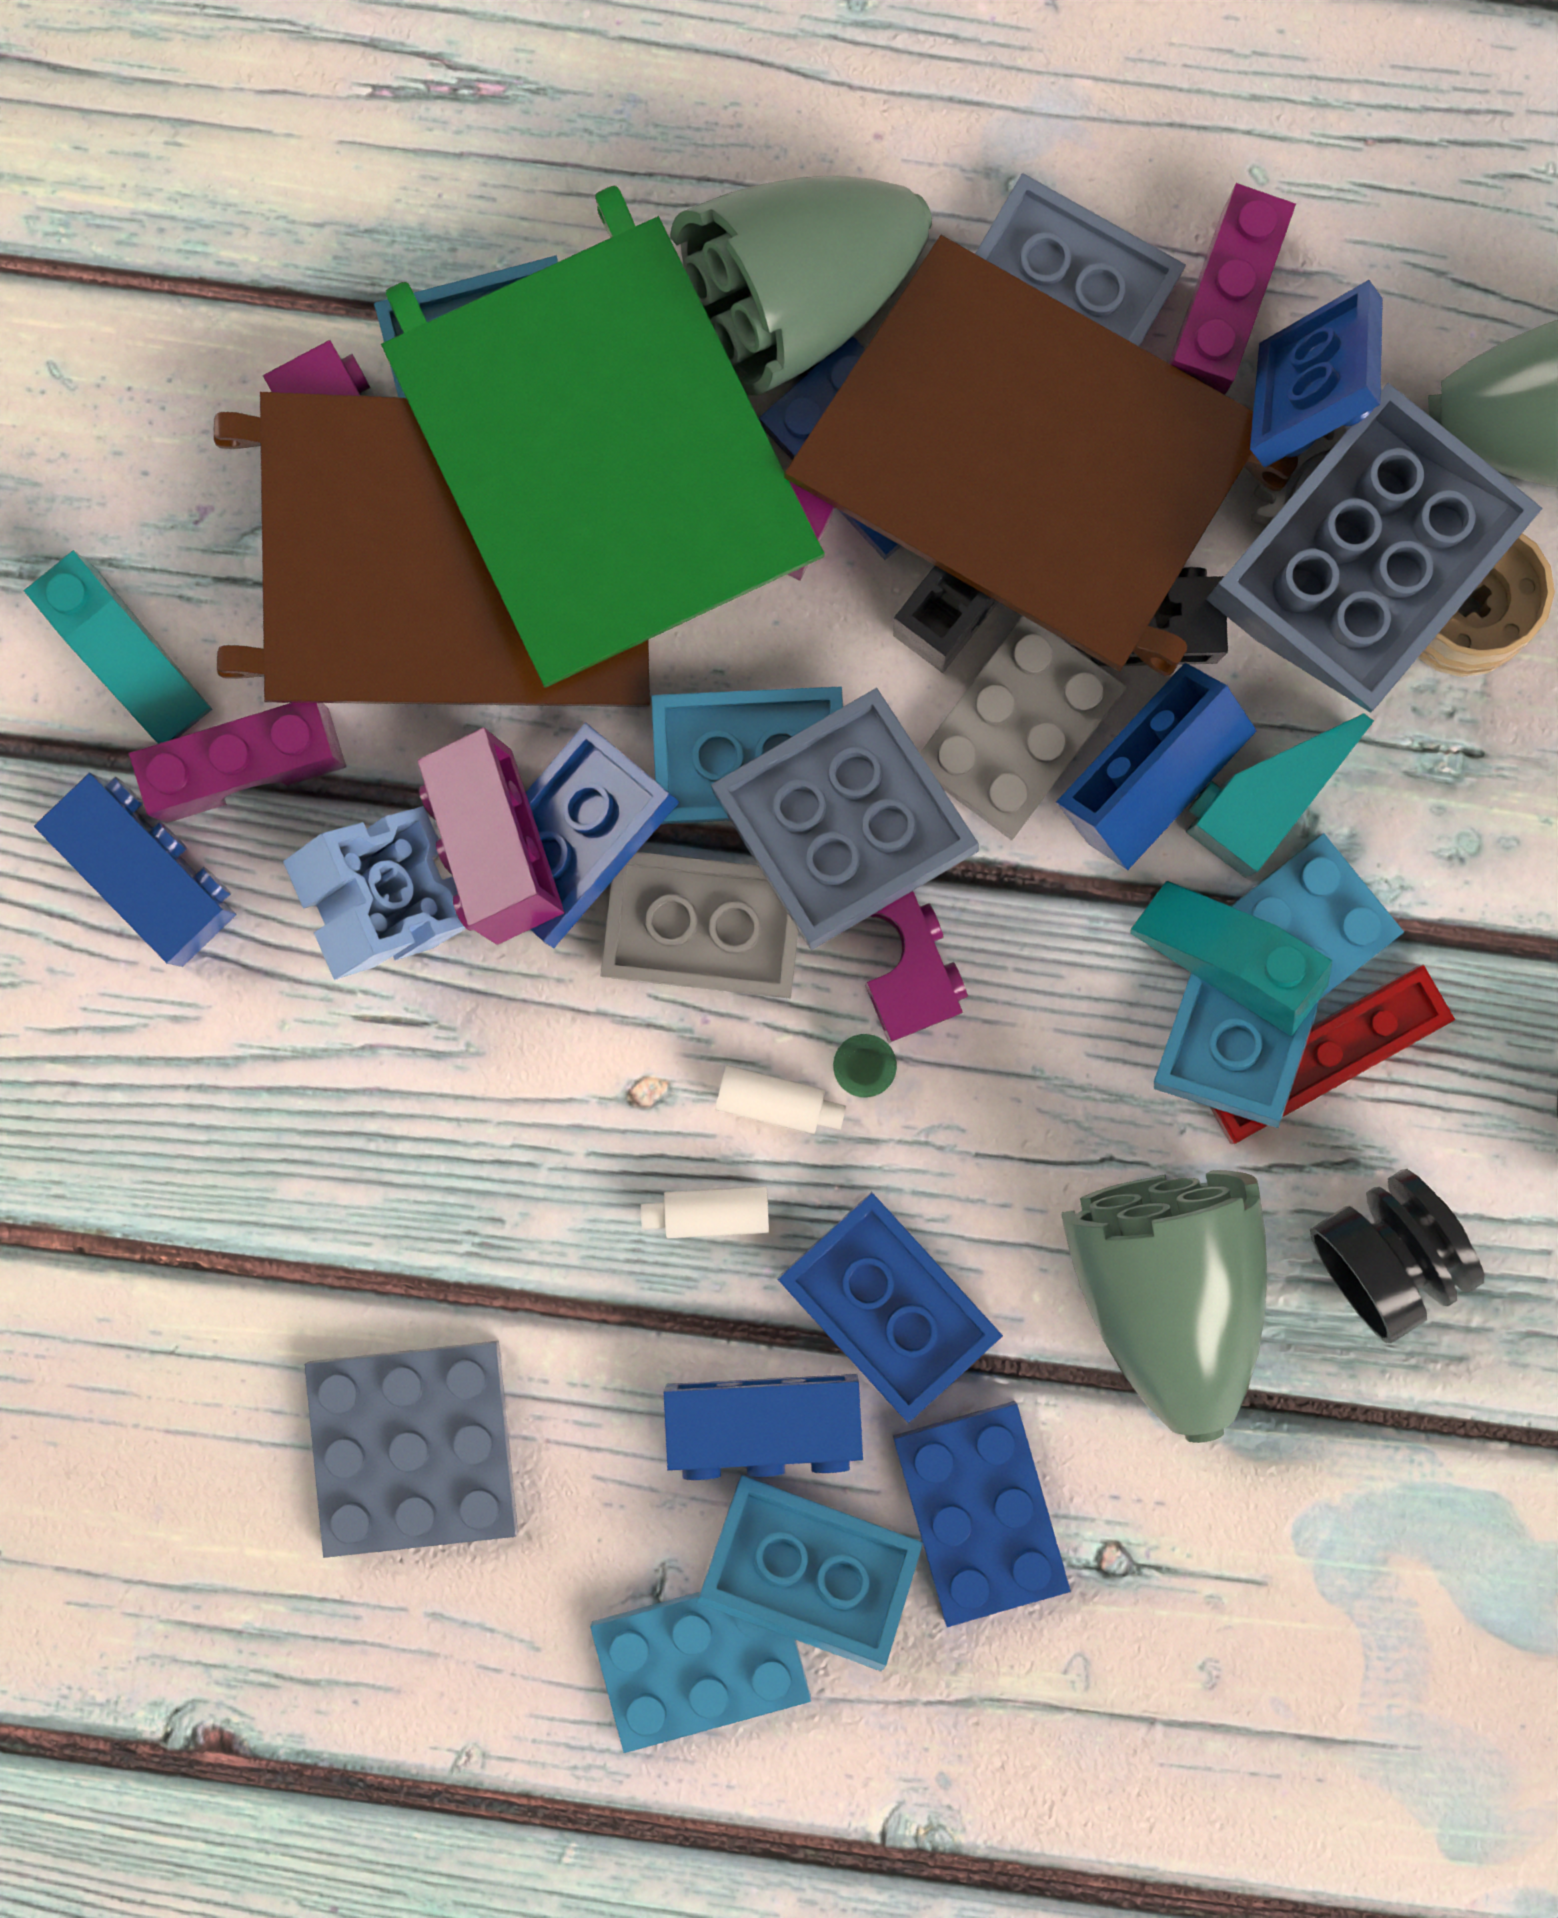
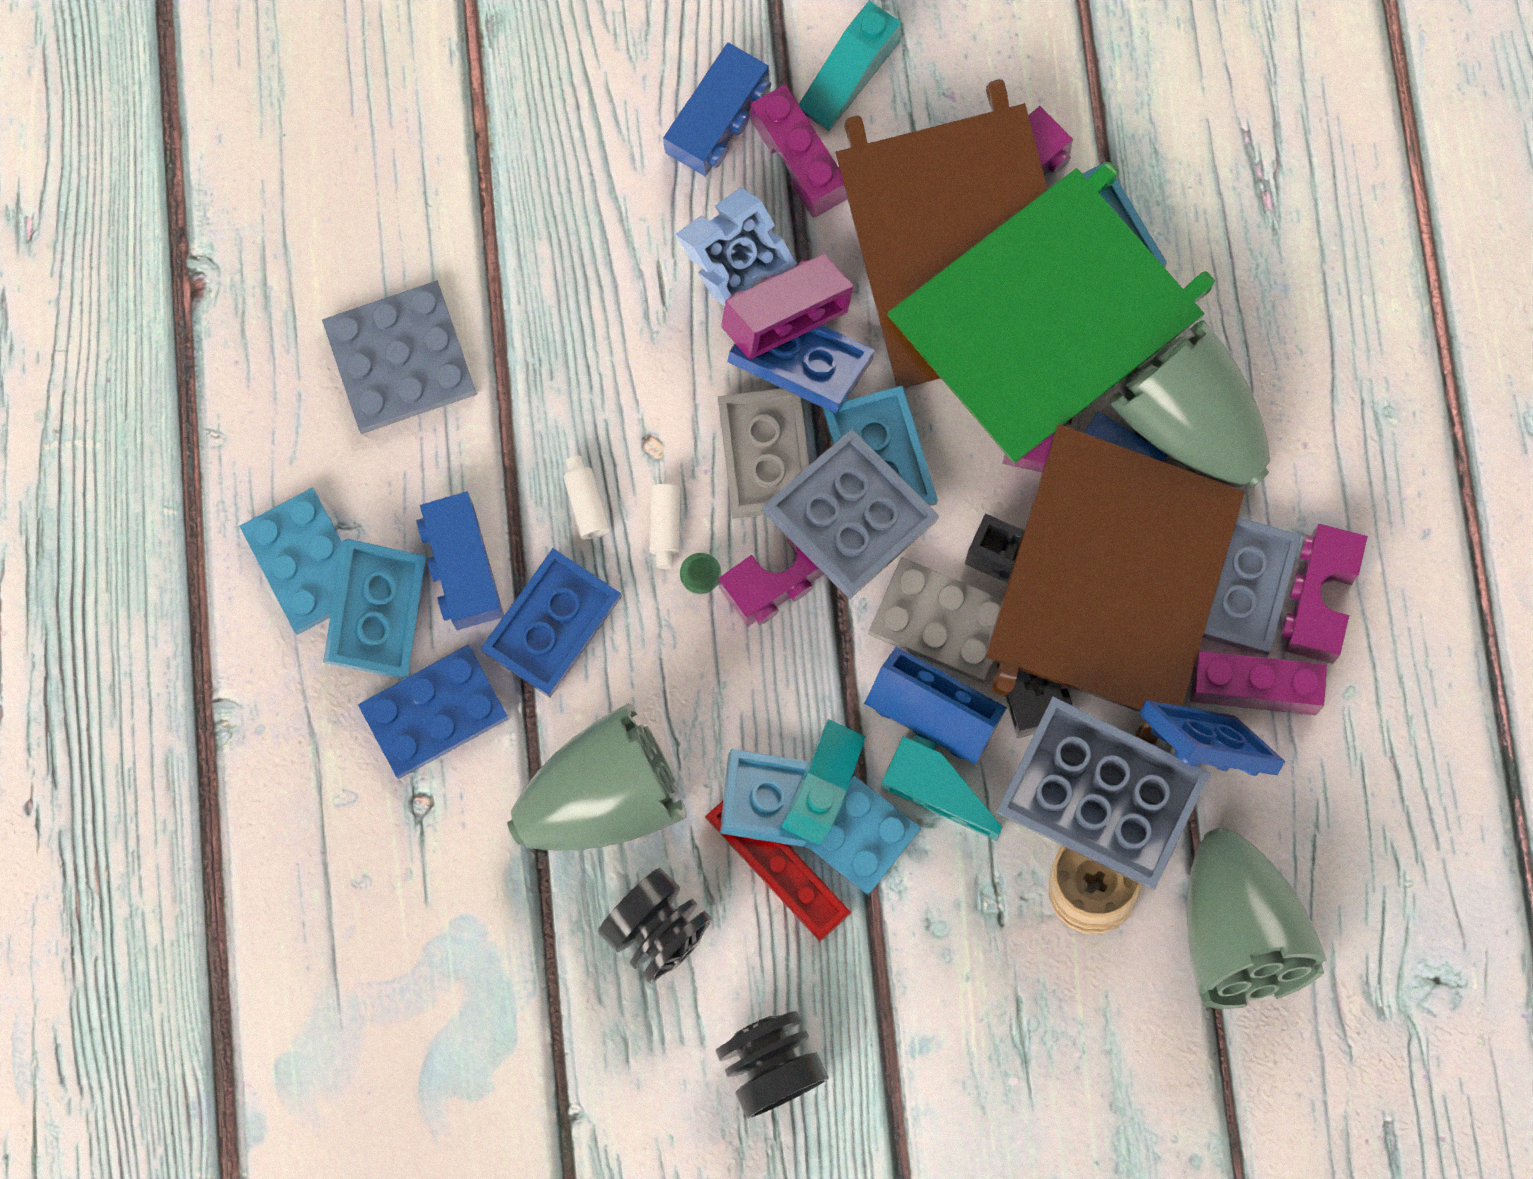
camera: 80 degrees right, 10 degrees down
(1152, 197) = (1313, 627): none -> magenta arch

